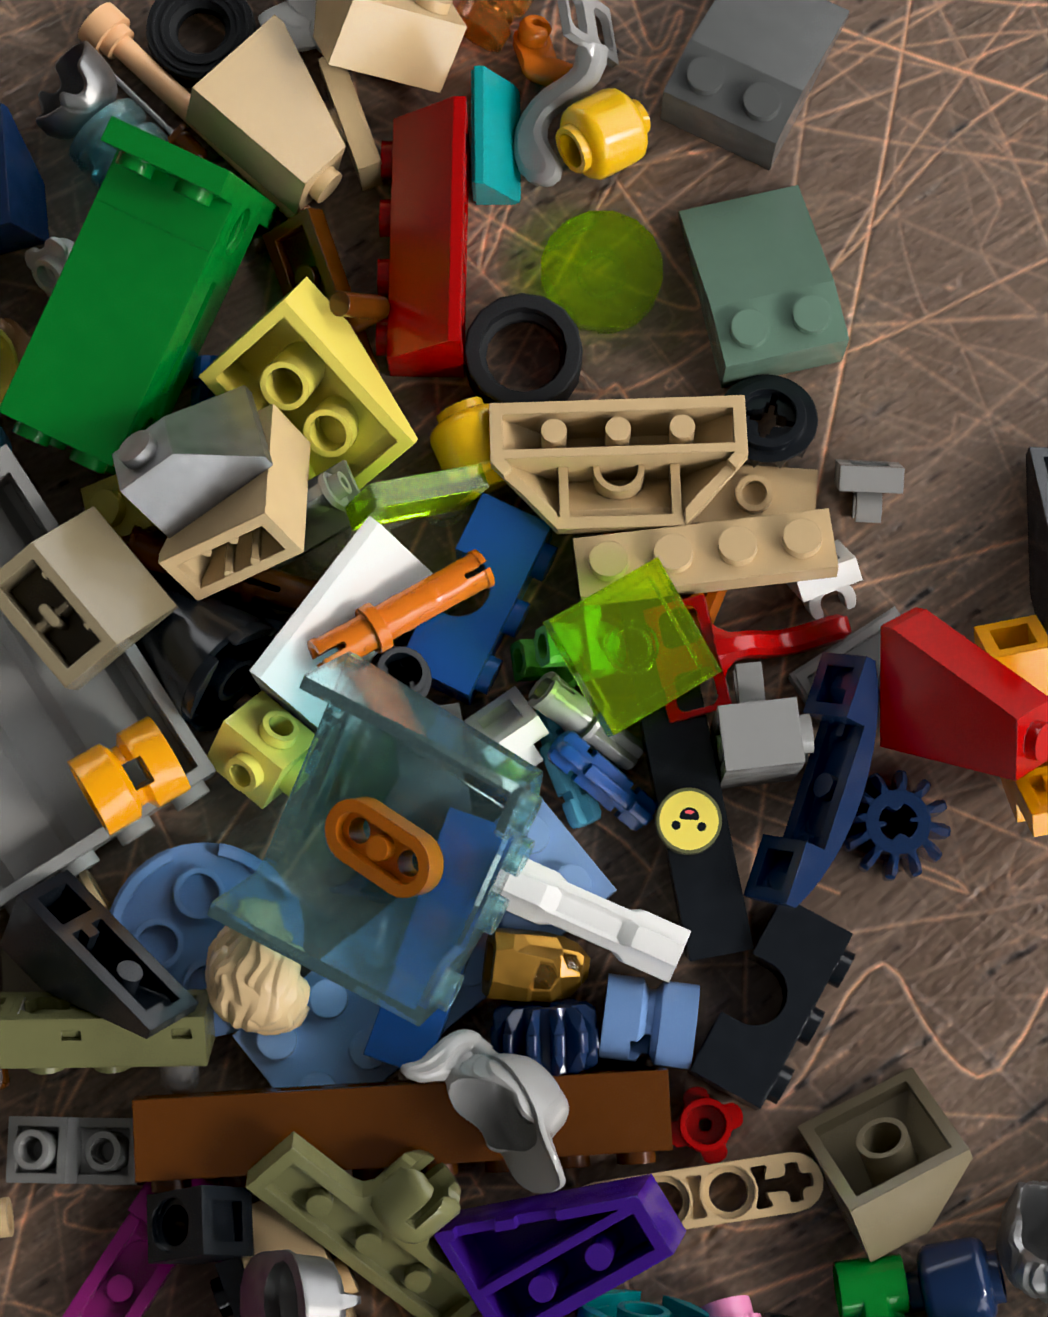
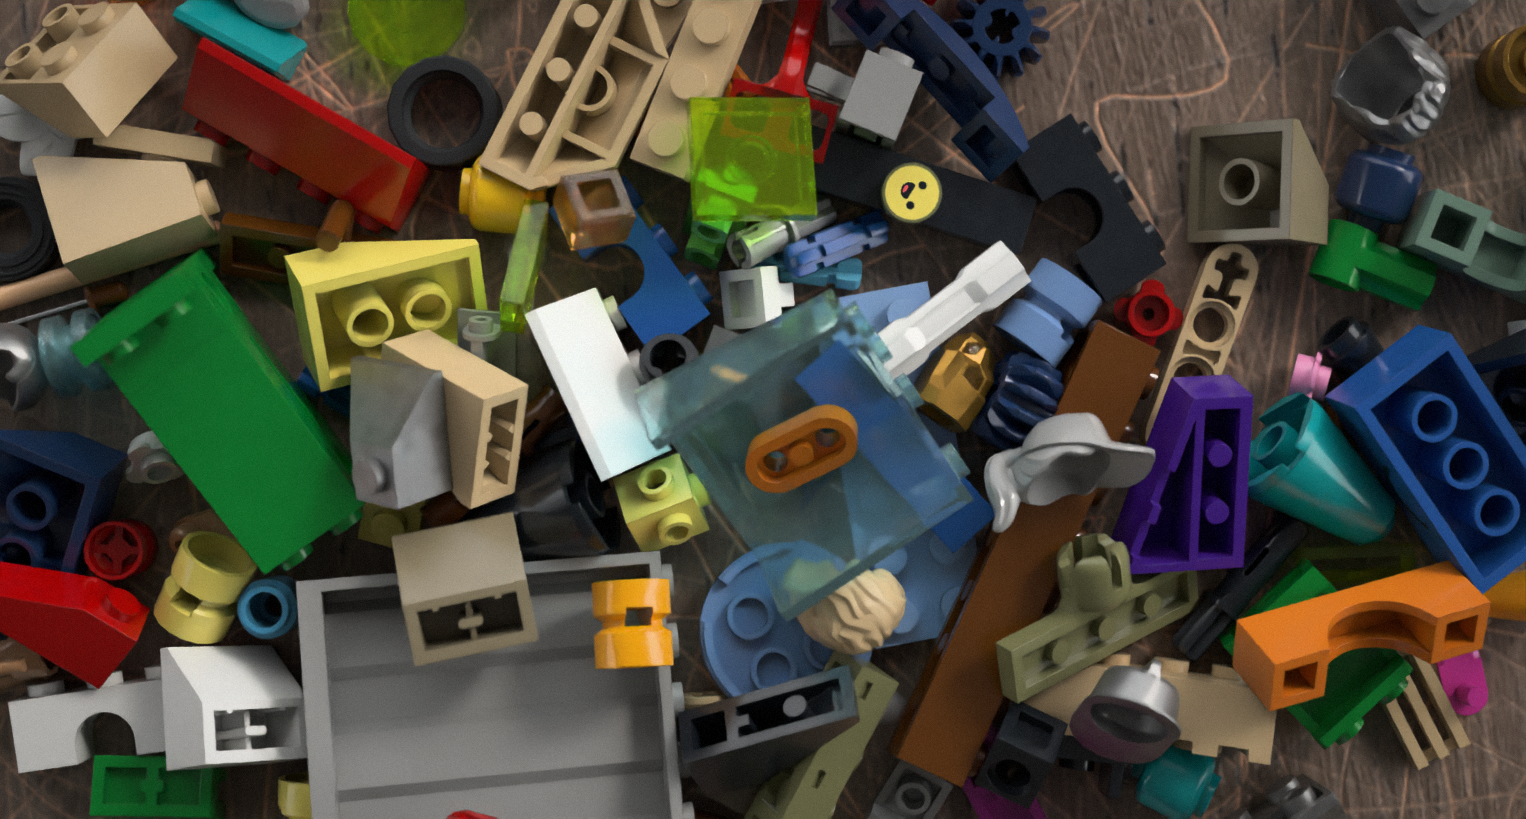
camera: 60 degrees left, 10 degrees up
(379, 625) = (619, 354): orange pin -> none
(507, 530) = (593, 208): none -> clear orange slope

